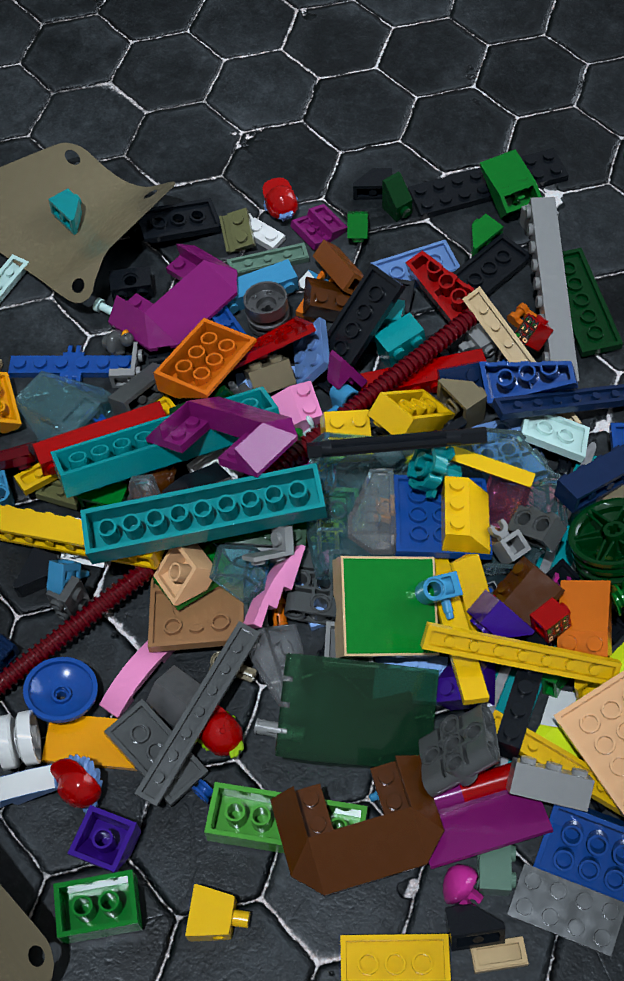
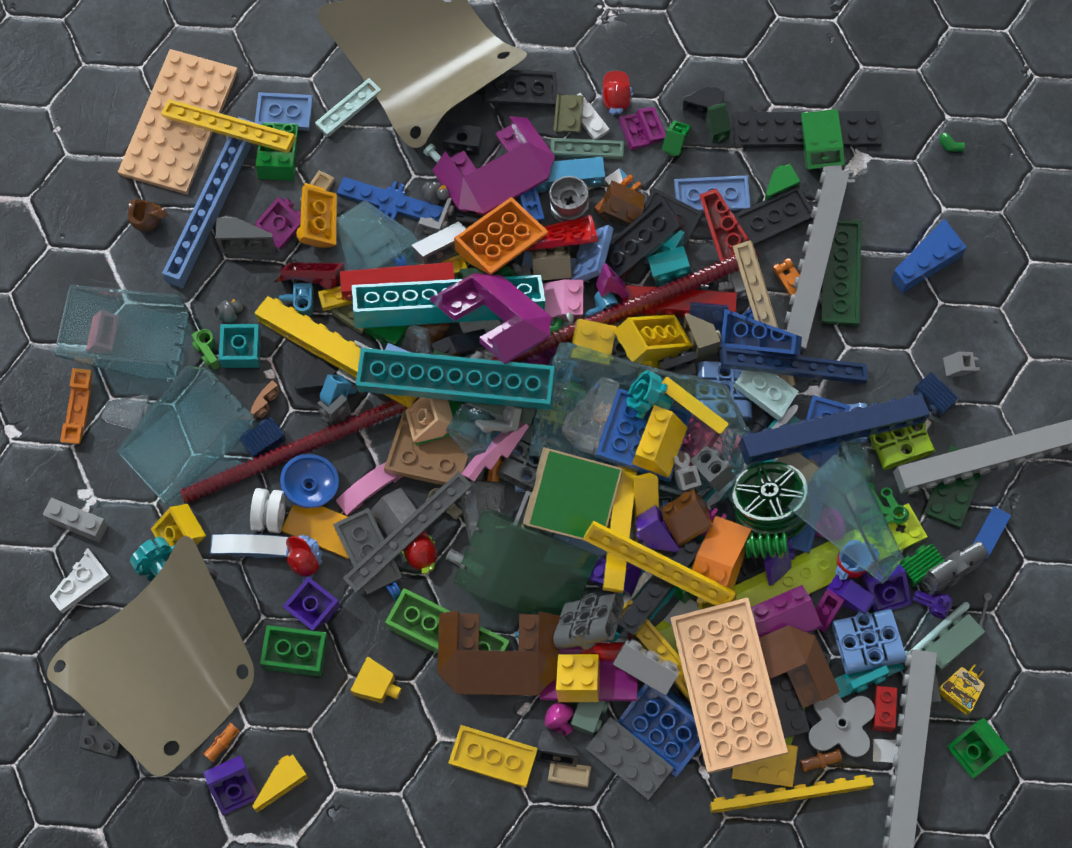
camera: 15 degrees right, 10 degrees up
(67, 209) = (427, 47): teal slope -> none
(338, 266) = (643, 179): dark orange brick -> none
(397, 442) = (622, 369): black piece -> none
(445, 588) = (621, 497): dark azure piece -> none
(471, 825) = (578, 678): none -> yellow brick
(534, 331) = (783, 293): red brick -> none
(551, 619) = (693, 545): red brick -> none

